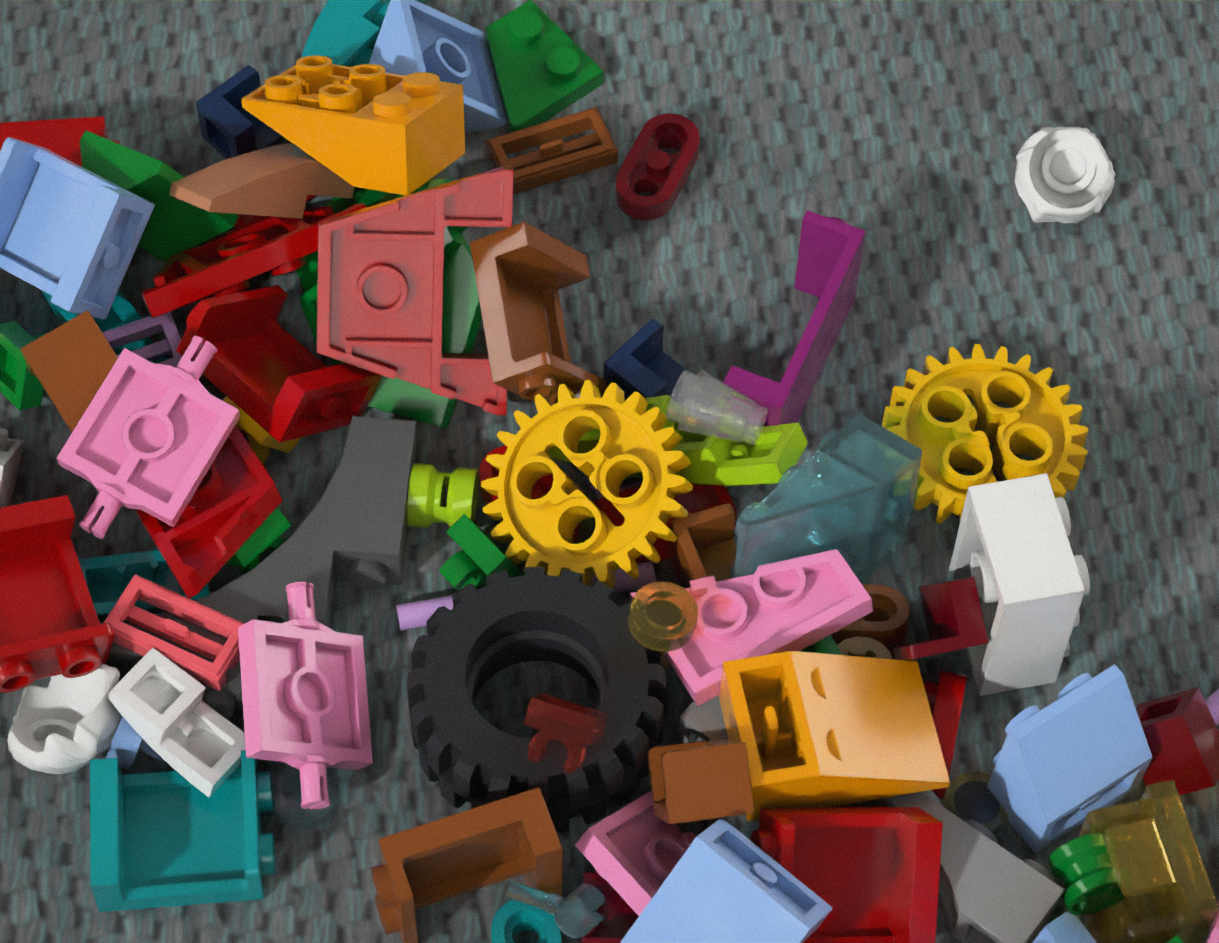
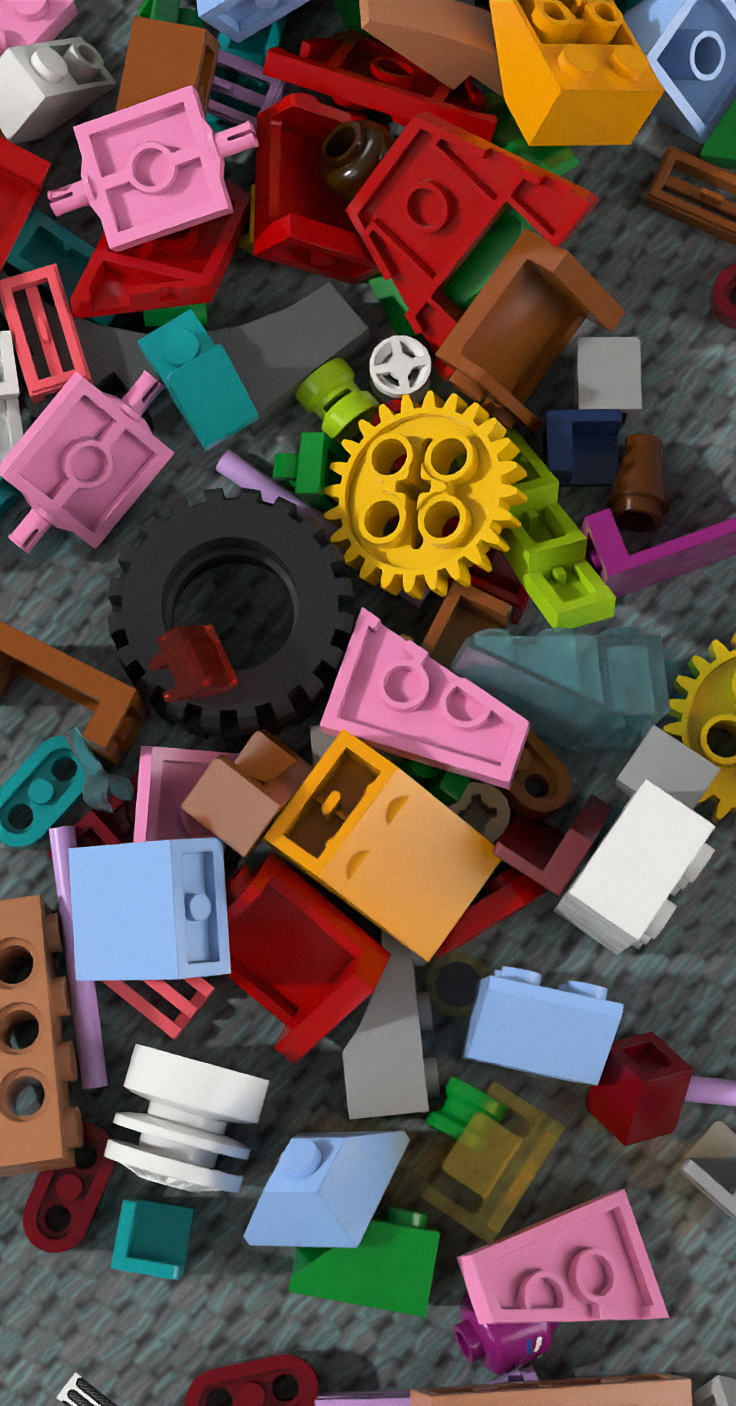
camera: 50 degrees right, 20 degrees up
(284, 320) = (352, 155): none -> dark brown head
(340, 557) = (199, 379): none -> teal slope
(461, 425) = (399, 358): none -> white wheel
(614, 310) = (608, 376): none -> light grey panel
(662, 616) = (354, 649): clear yellow tile -> none
(710, 352) = (639, 488): none -> reddish brown cone
(714, 409) = (560, 529): clear cone -> none
(941, 503) = (669, 767): none -> light grey panel

